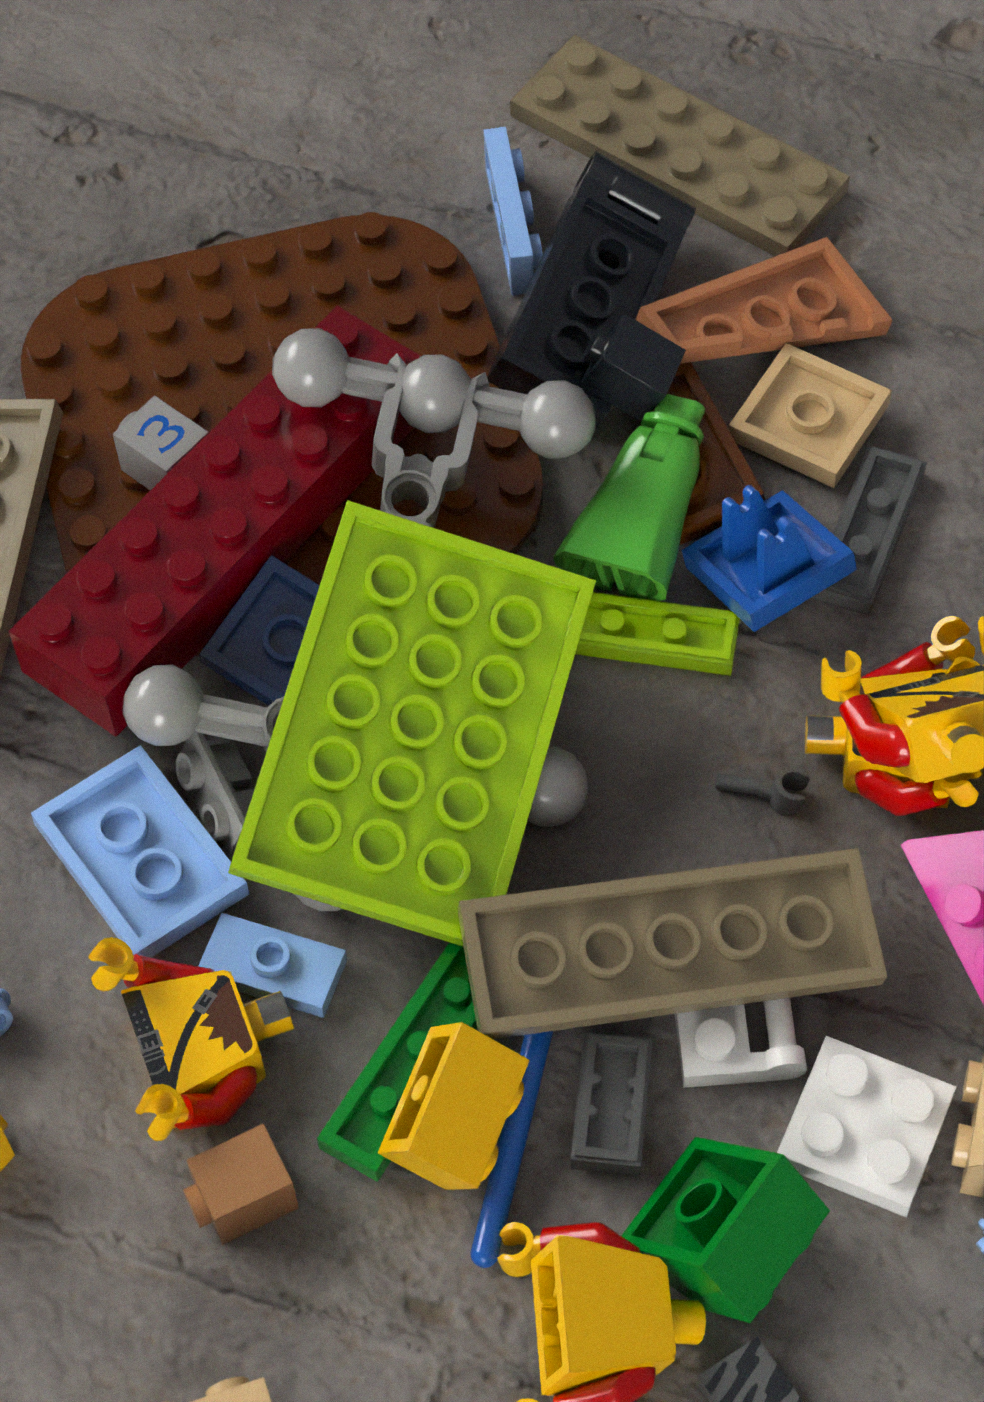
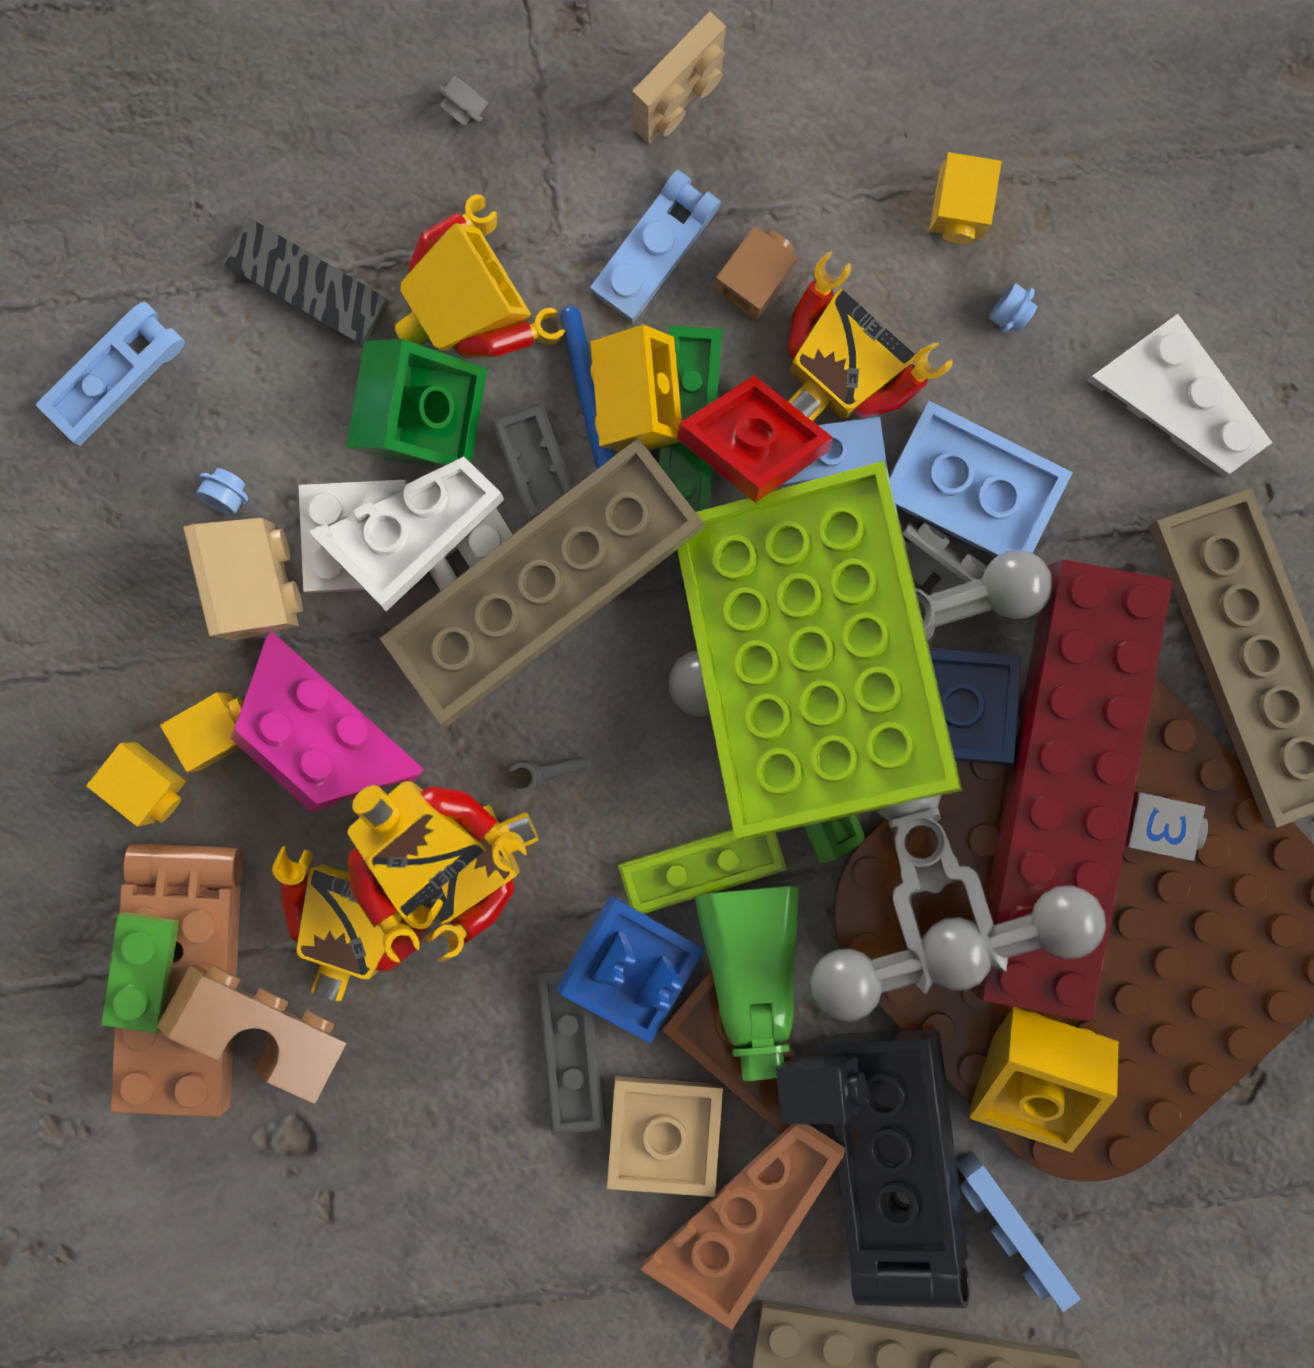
camera: 145 degrees right, 30 degrees up
(340, 1284) = (654, 248): none -> light blue plate
(350, 985) = (754, 438): none -> red plate
(408, 293) = (1046, 1080): none -> yellow slope
(798, 1075) = (406, 535): none -> white wing

